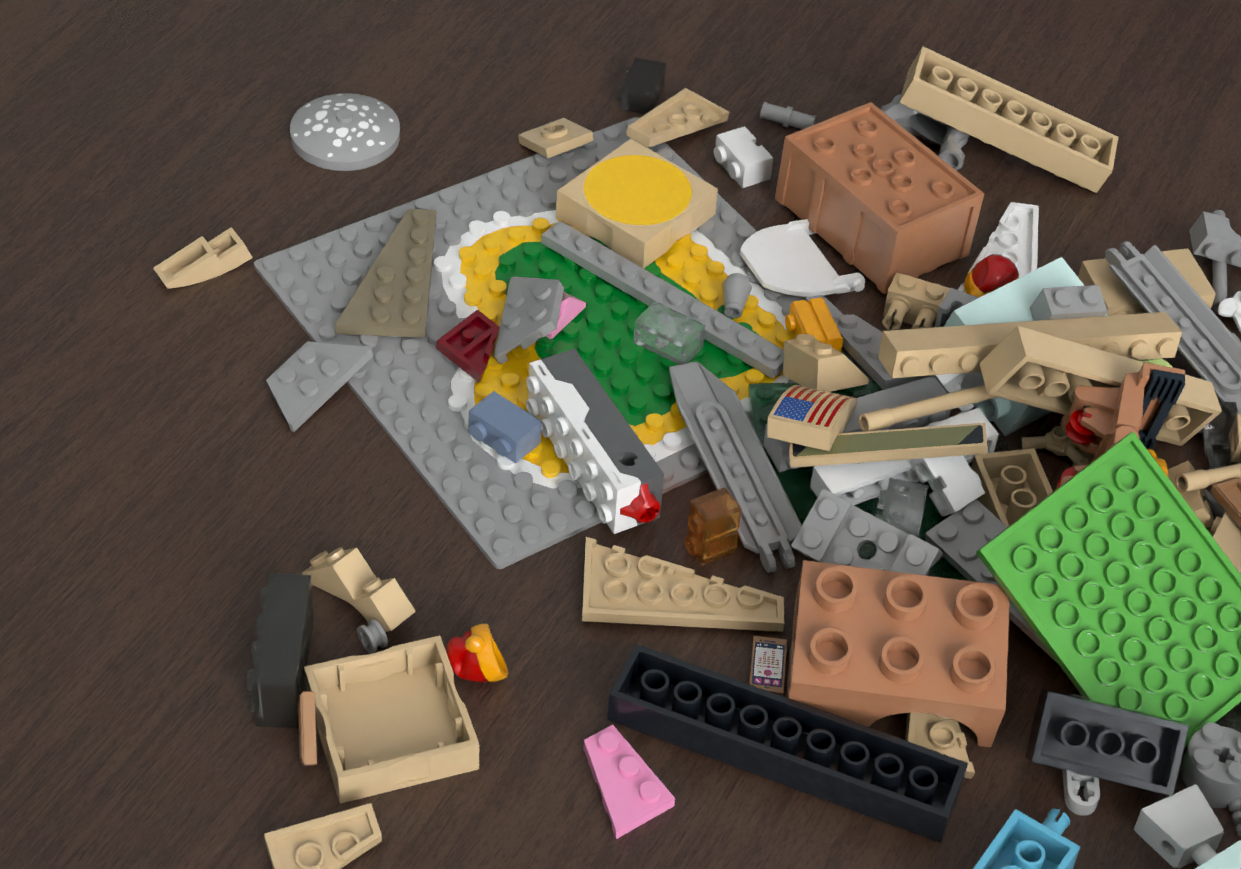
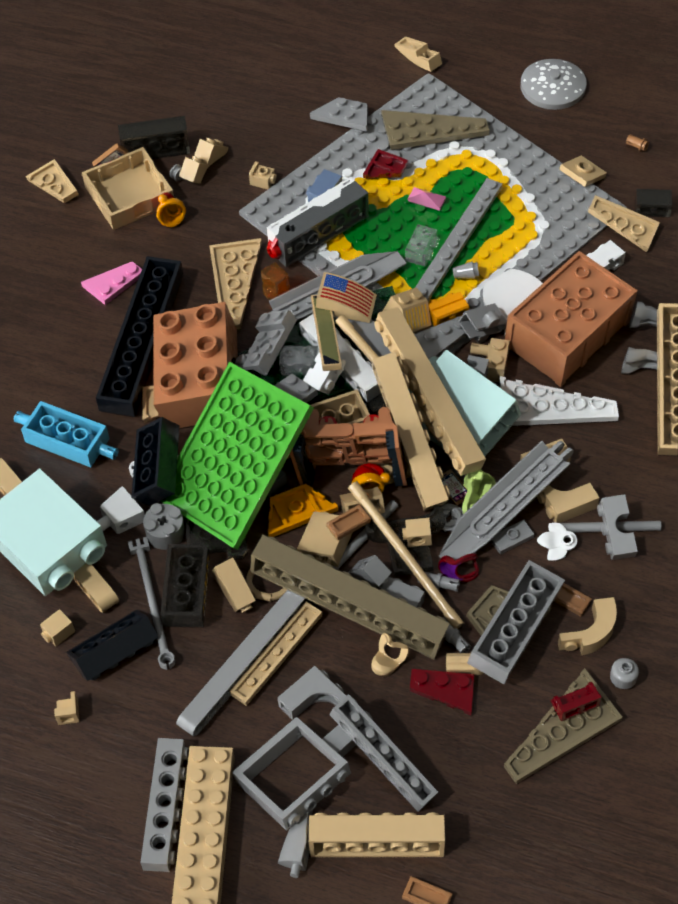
camera: 85 degrees right, 10 degrees up
(430, 508) = (262, 176): none -> tan brick
(518, 72) = (641, 144): none -> medium nougat pin
(528, 313) = (414, 182): light grey wing -> none
(636, 202) = (528, 212): tile -> none
(786, 116) = (657, 278): light grey pin -> none
(848, 290) = (482, 322): none -> light grey piece
(990, 275) = (522, 389): red piece -> none
(1068, 303) = (466, 405): light grey brick -> none

